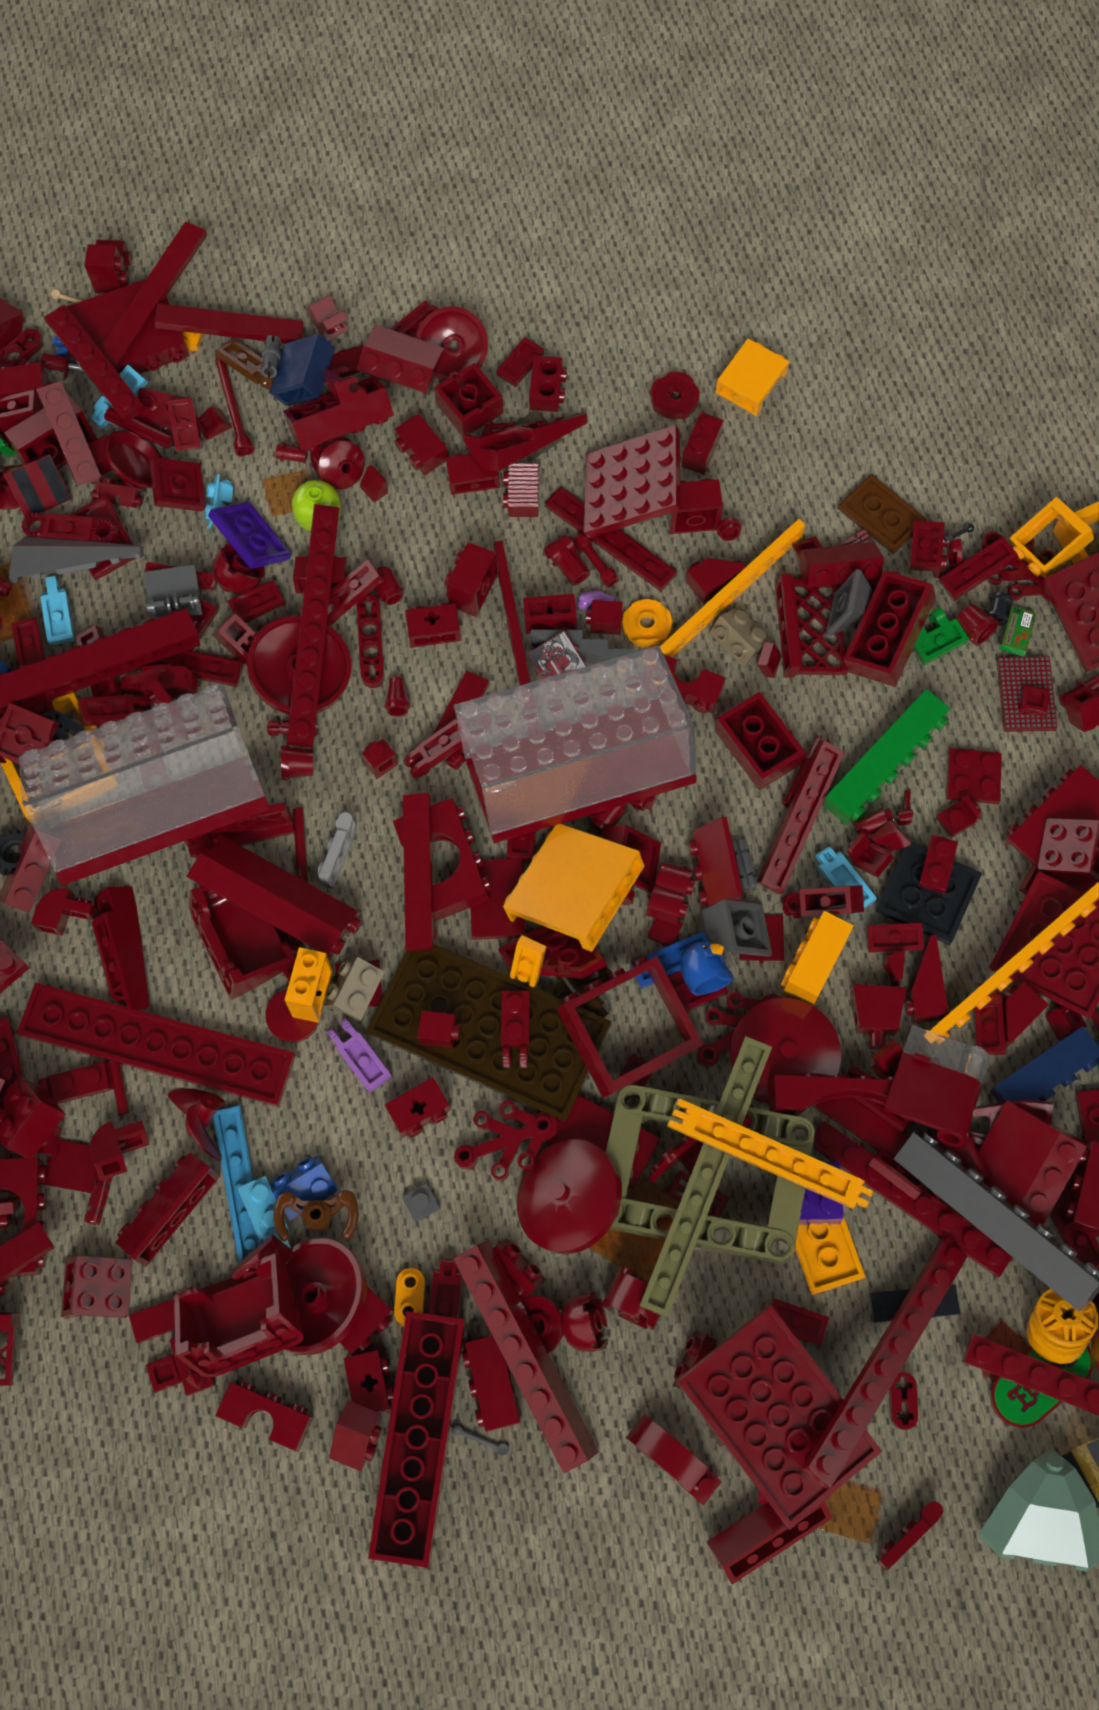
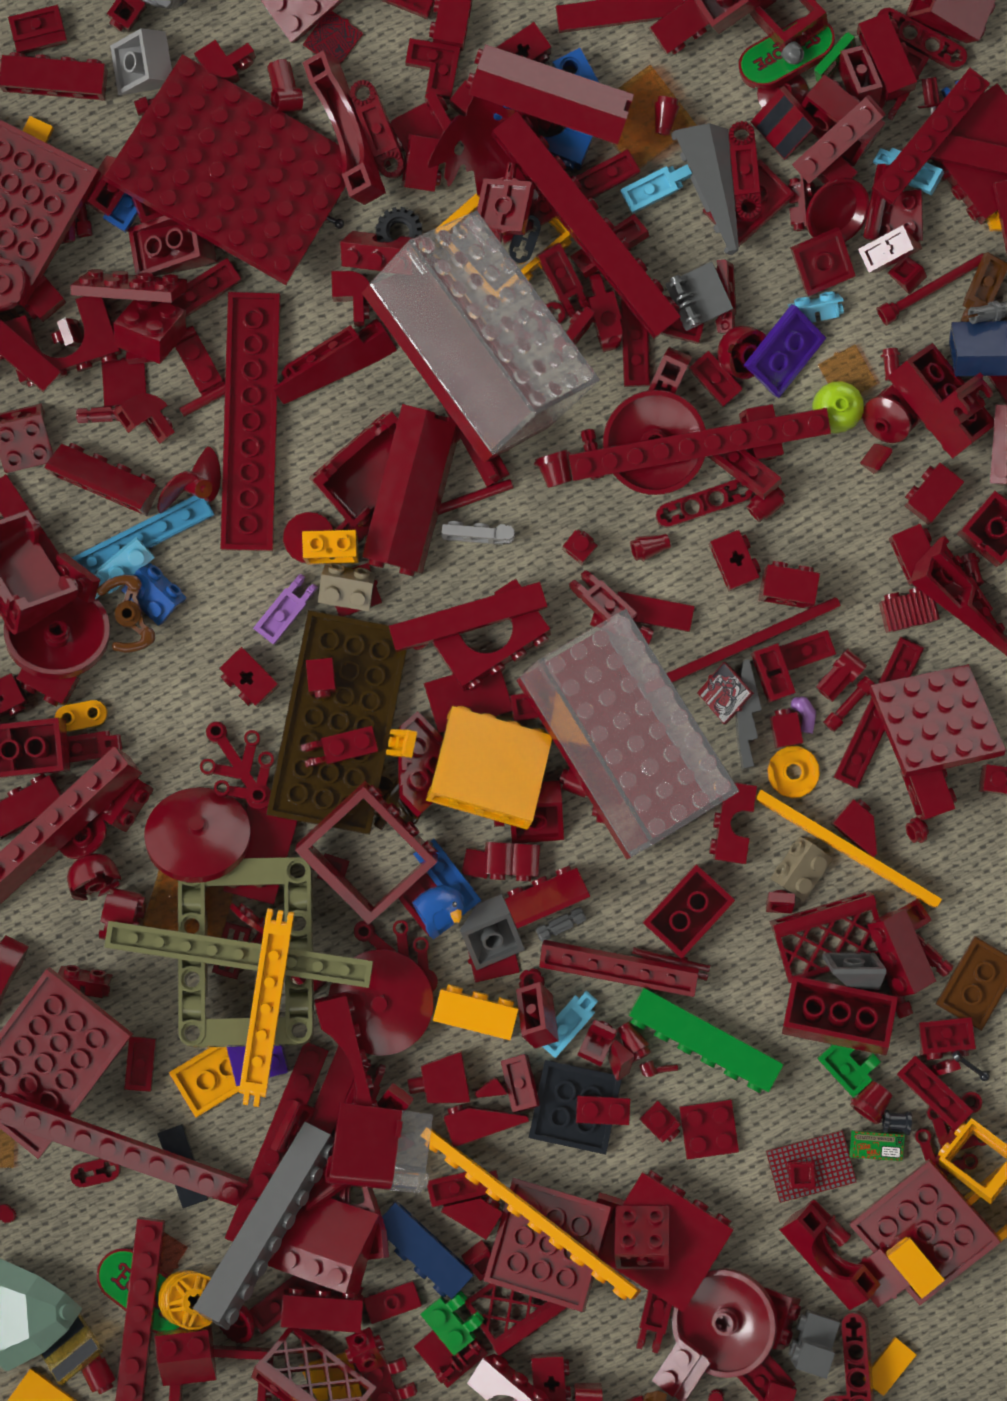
camera: 75 degrees right, 15 degrees up
(421, 1203) = (166, 703): dark grey plate -> none
(535, 577) = (807, 650): none -> dark red plate

